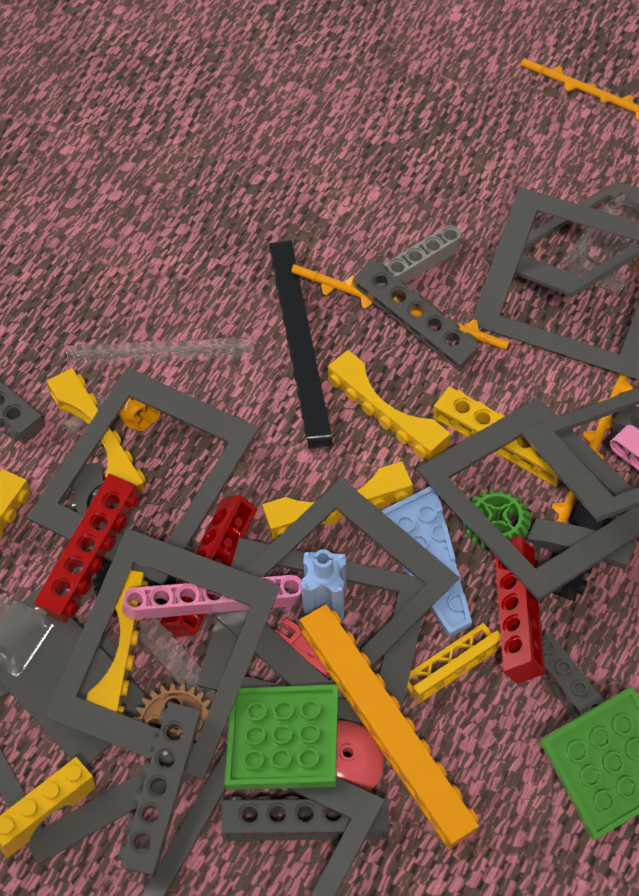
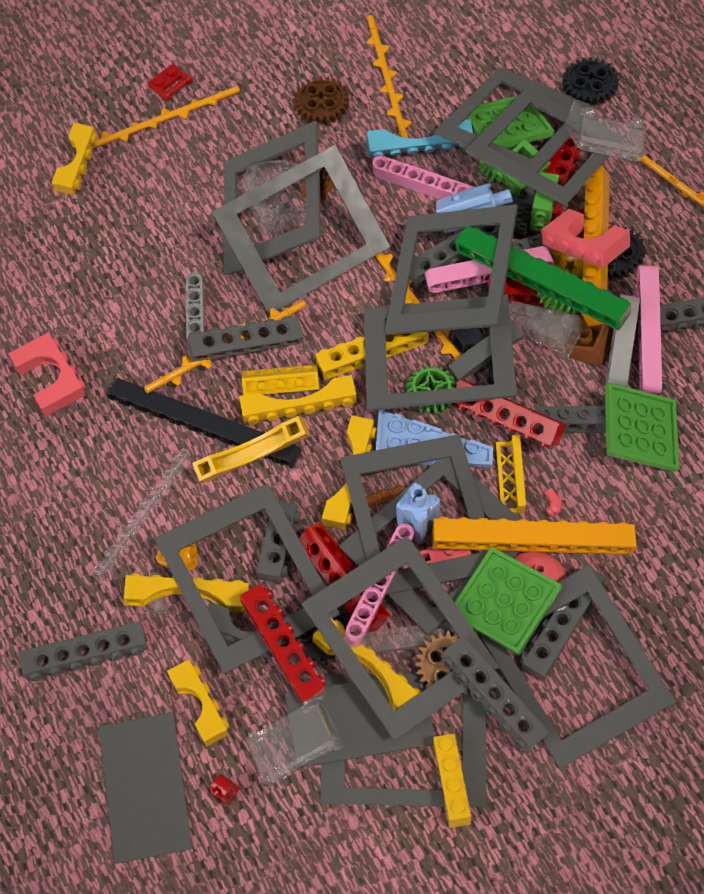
camera: 55 degrees left, 5 degrees up
(176, 488) = (276, 571): none -> dark grey brick
(256, 209) = (45, 351): none -> coral arch
(313, 405) = (255, 449): none -> yellow arch
(323, 542) = (383, 496): none -> clear orange pin
(399, 377) = (280, 380): none -> yellow fence
(450, 728) = (555, 503): none -> coral arm
(483, 71) = (68, 178): none -> yellow arch

